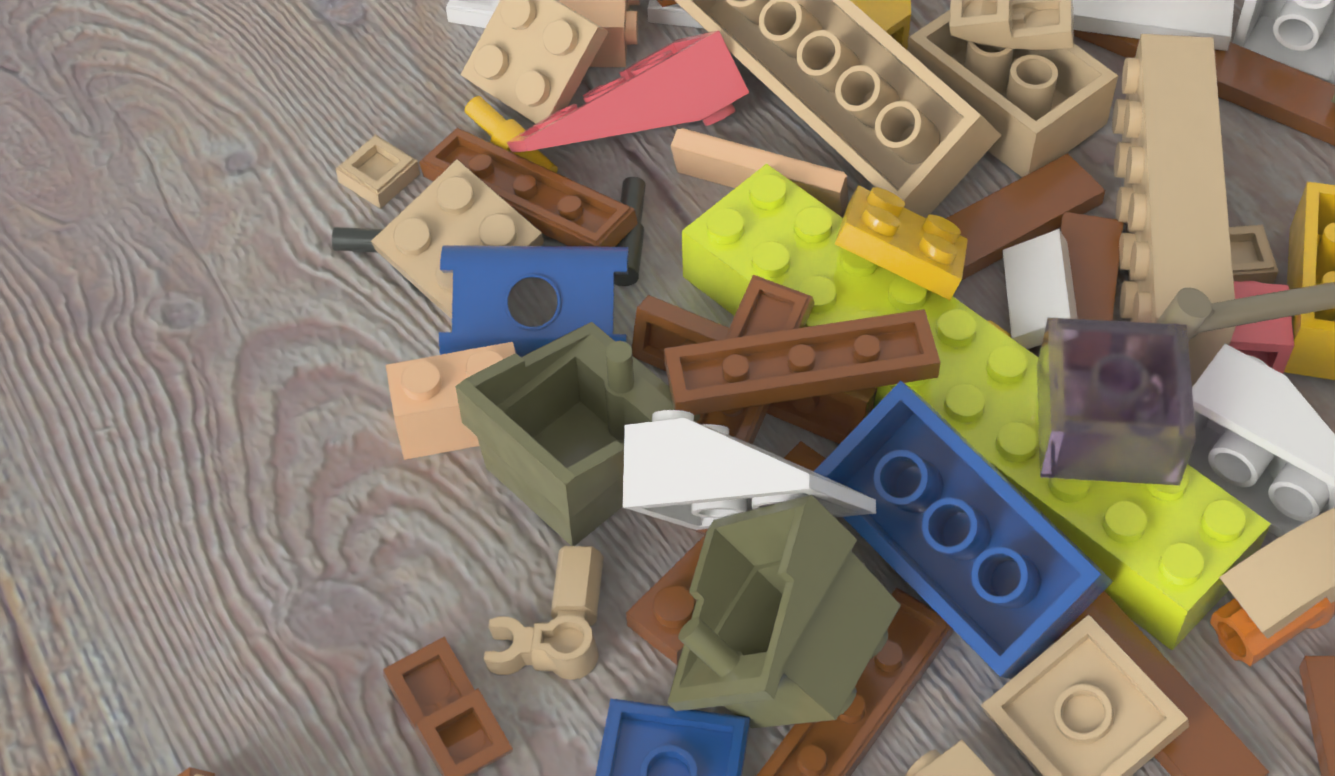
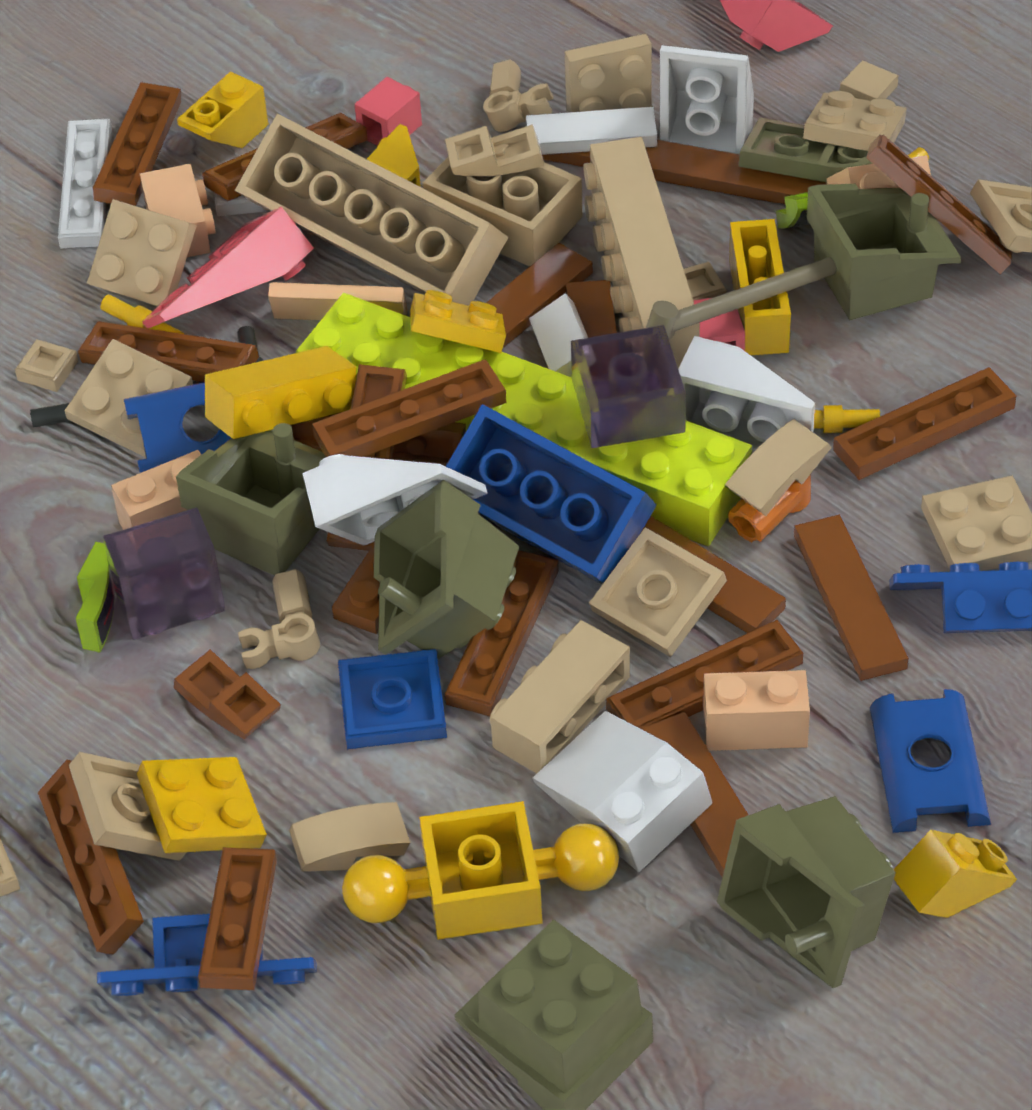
camera: 15 degrees left, 5 degrees down
(331, 504) = (97, 597): none -> lime slope
(412, 511) = (165, 573): none -> clear purple brick
(638, 288) = (279, 391): none -> yellow brick

